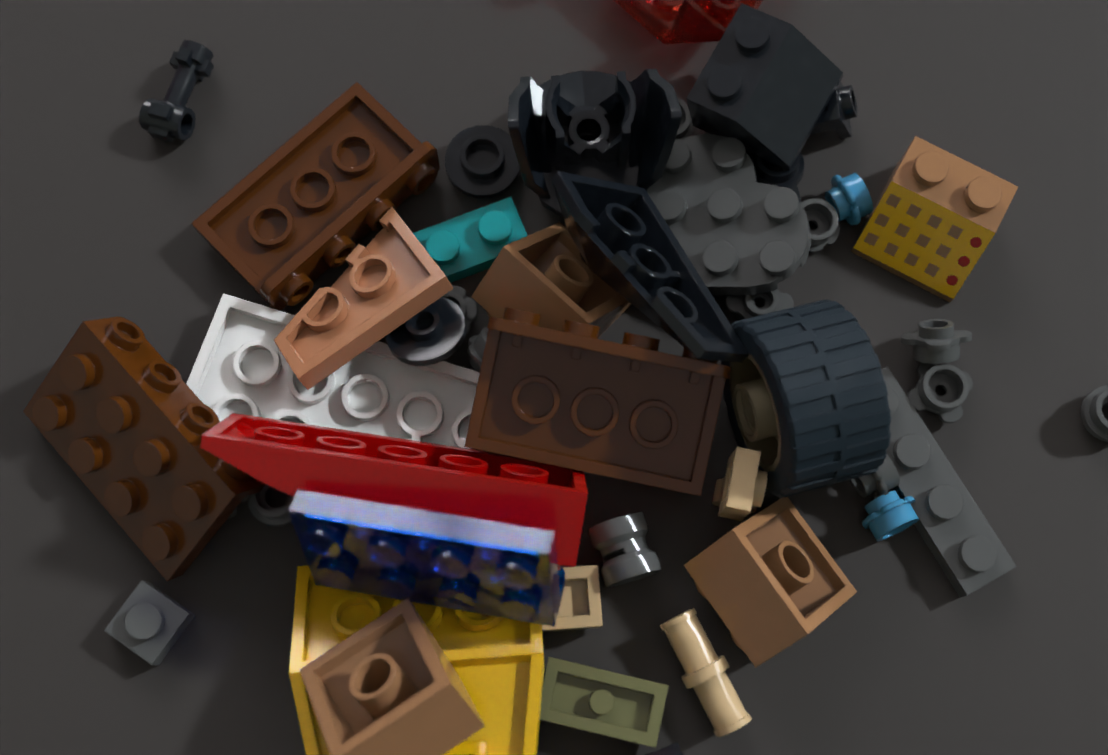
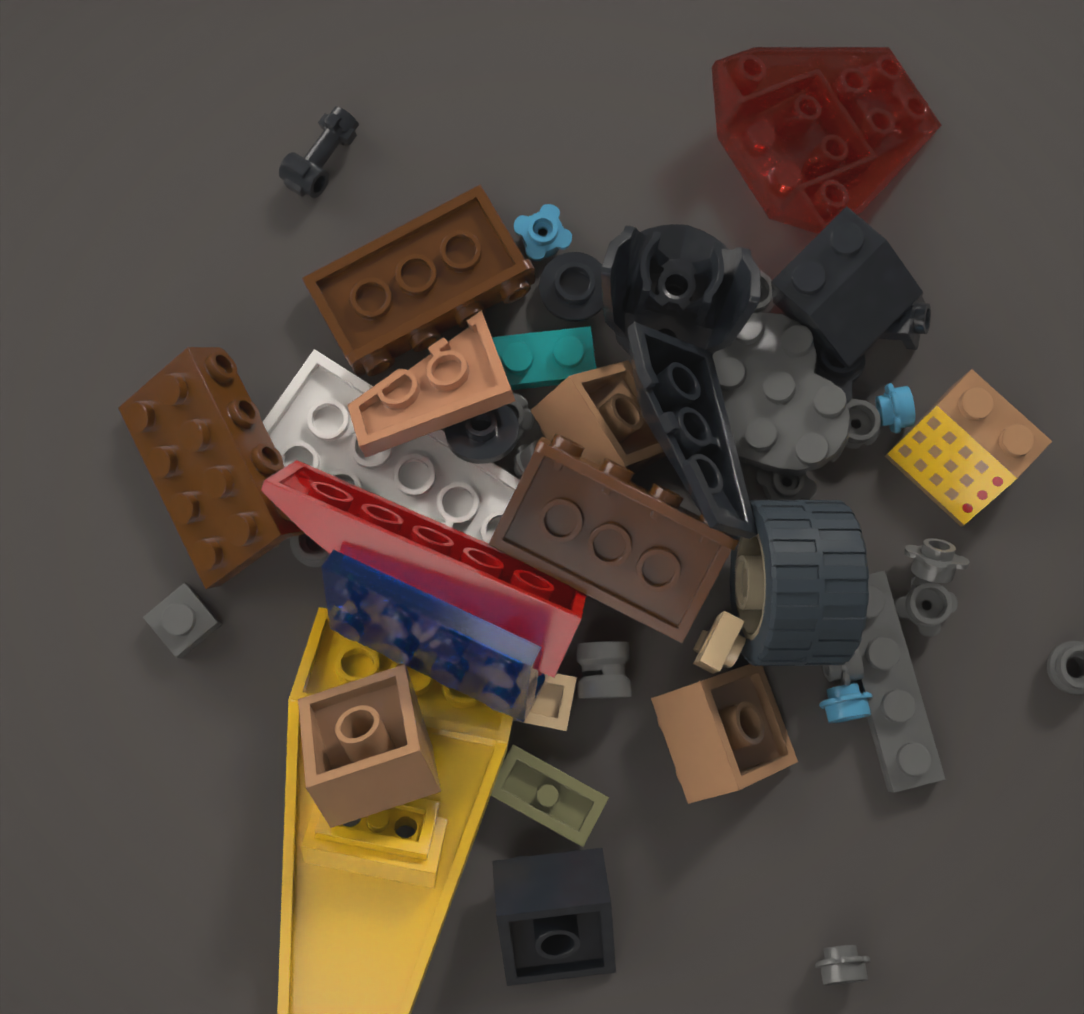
camera: 15 degrees right, 5 degrees up
(437, 129) = (539, 246): none -> dark azure plate
(705, 673) = (644, 795): tan pin -> none

